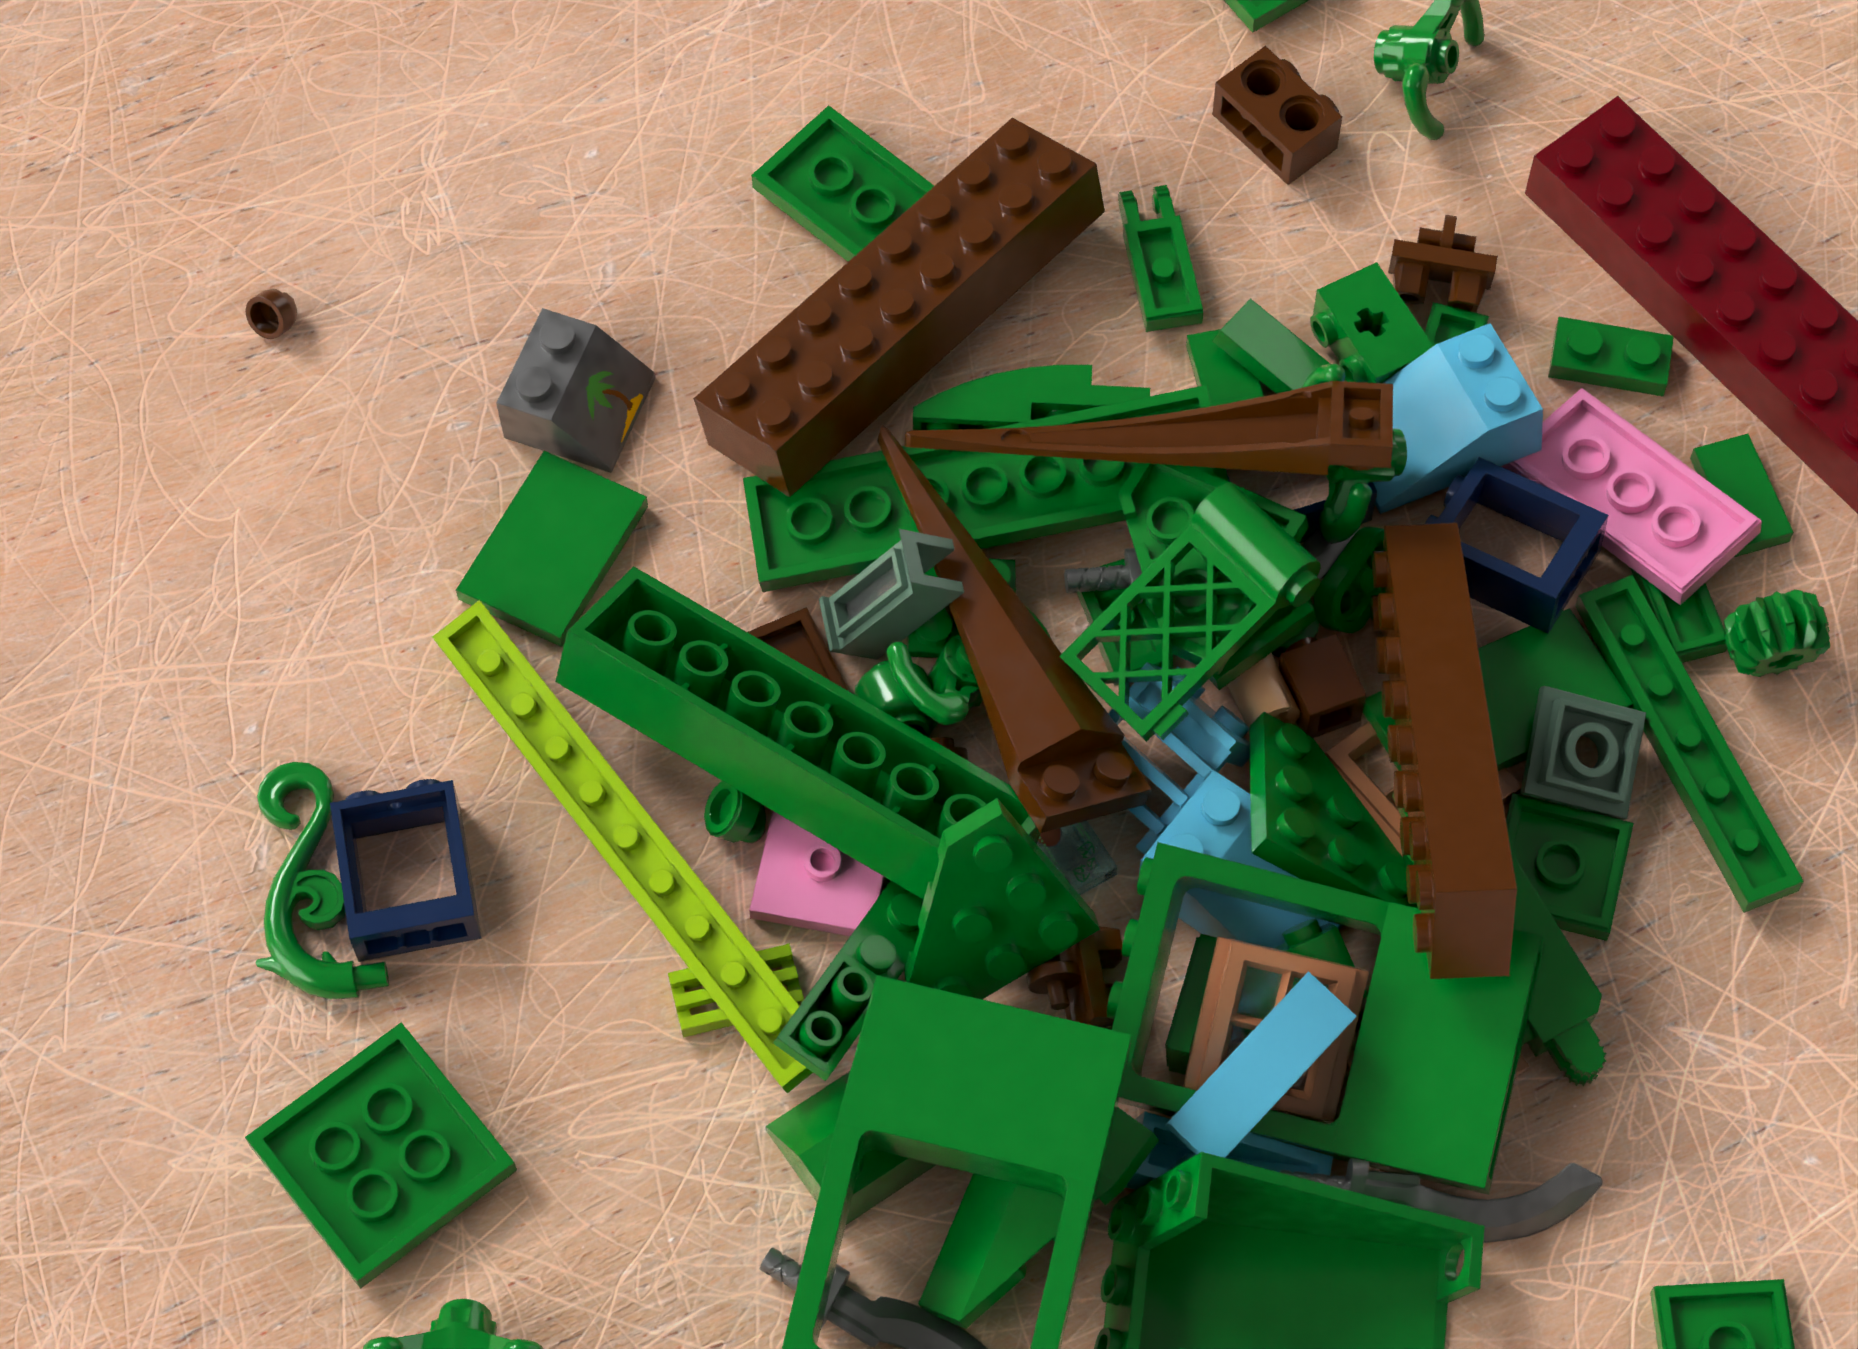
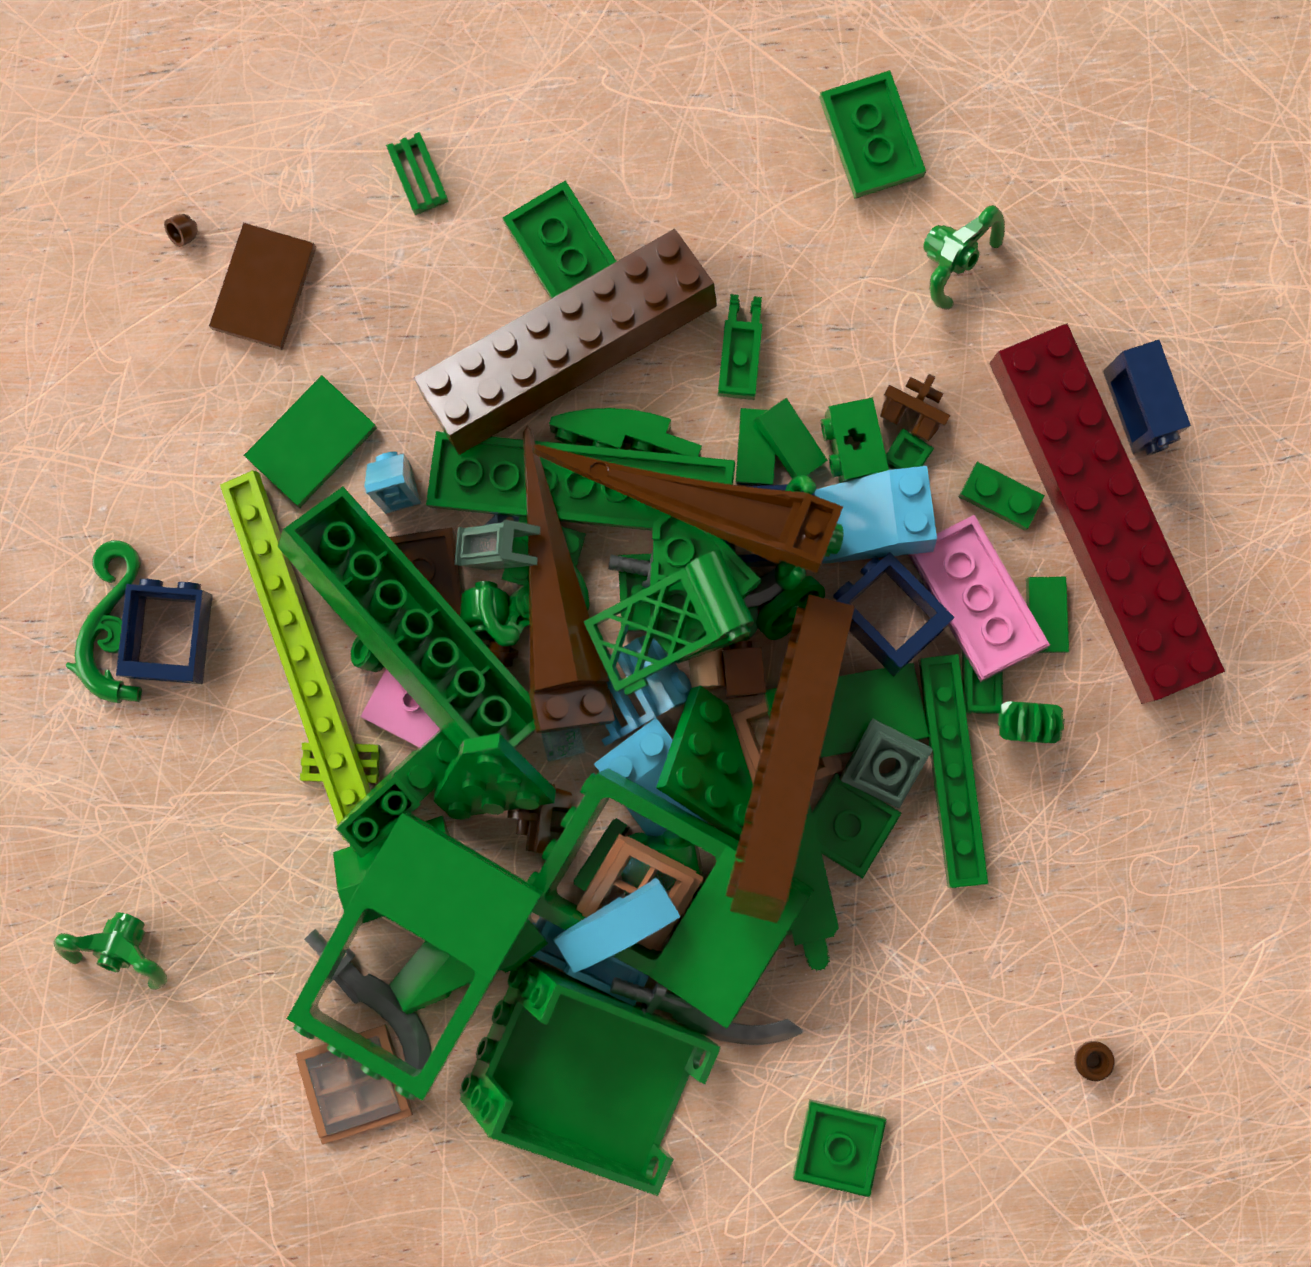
camera: 15 degrees right, 20 degrees up
(381, 1154) = (106, 807): green plate -> none
(417, 359) = (262, 286): none -> reddish brown tile
(573, 392) = (350, 340): flat silver slope -> none
(581, 126) = (406, 146): none -> green tile
(705, 557) = (391, 482): none -> medium azure slope
(1269, 121) = (839, 268): reddish brown brick -> none
(1768, 162) = (1146, 398): none -> dark blue window

